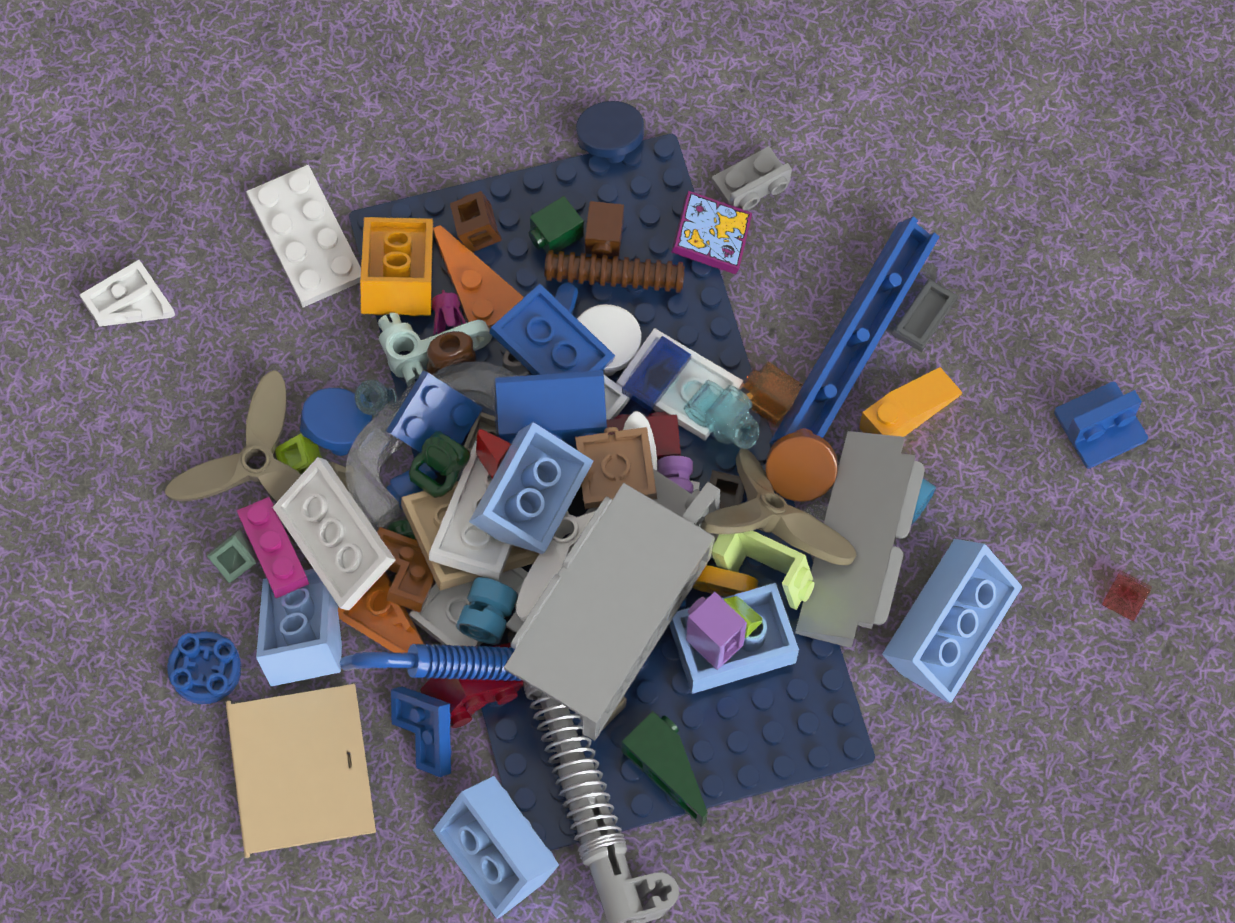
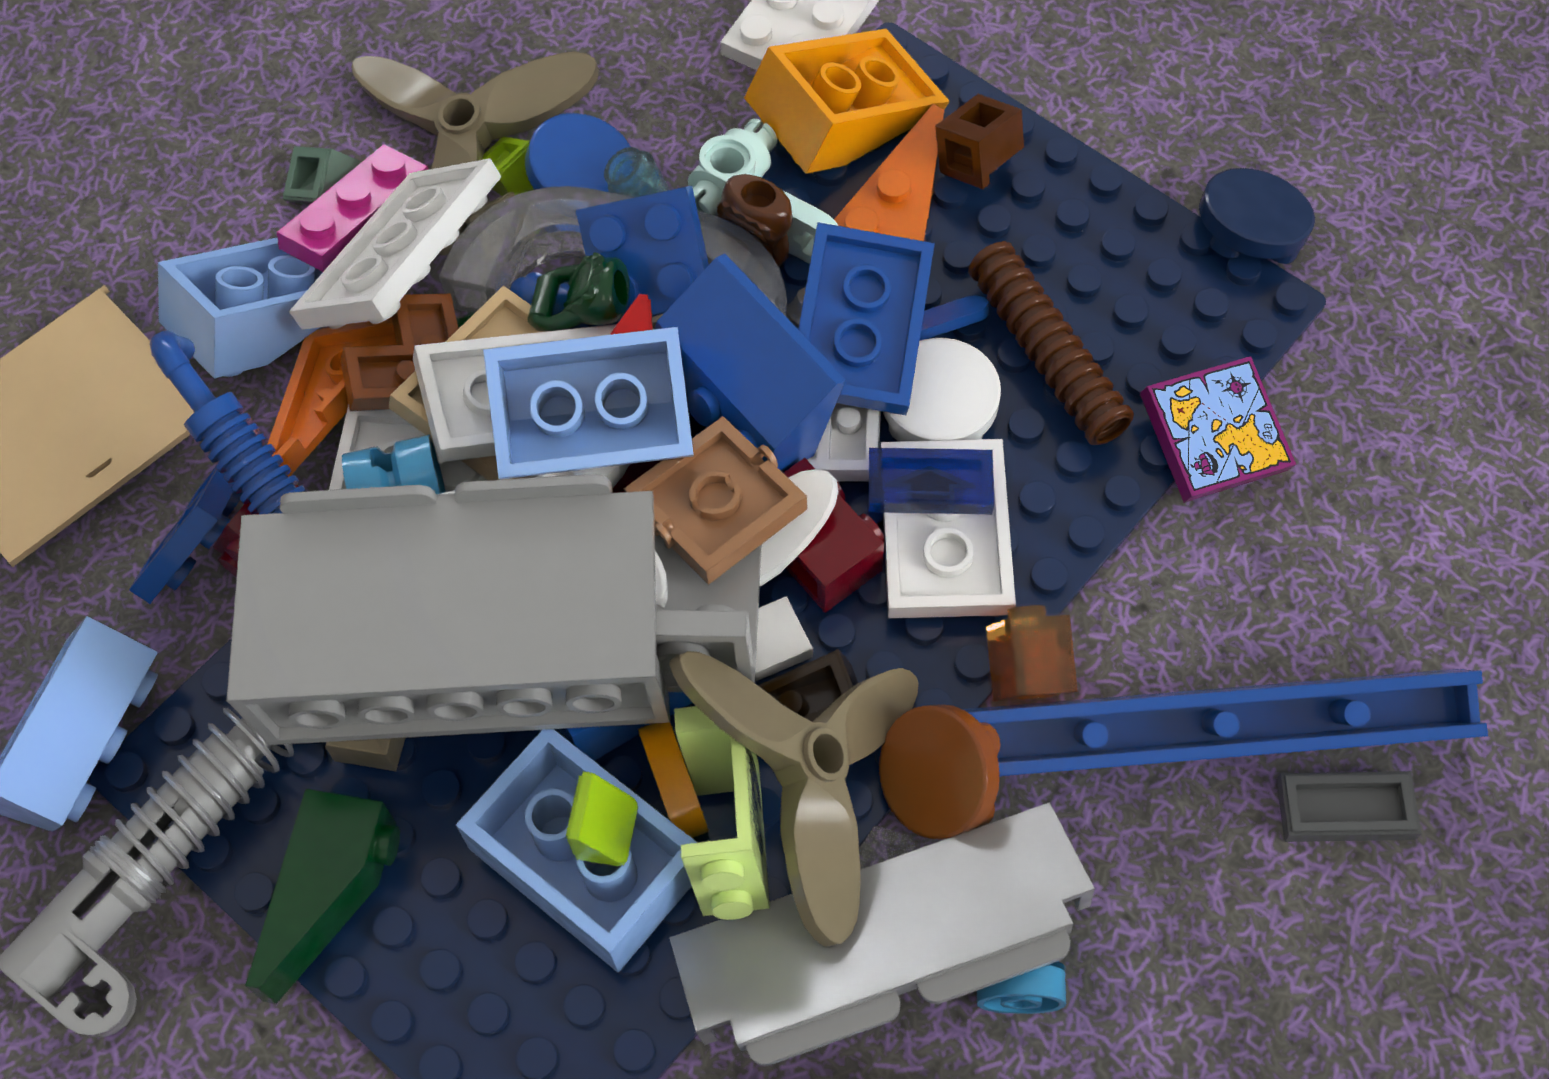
camera: 60 degrees right, 5 degrees down
(204, 667) = (140, 233): blue tile -> none
(446, 311) = (831, 182): magenta piece -> none
(556, 226) = (1053, 232): dark green brick -> none
(604, 229) = (1100, 290): reddish brown brick -> none
(677, 470) = (787, 603): medium lavender wheel -> none
(715, 629) = (527, 790): medium lavender brick -> none
(724, 414) = (930, 606): clear light blue piece -> none
(752, 179) = (1348, 434): light grey bracket -> none
(910, 405) = (1177, 877): light orange slope -> none

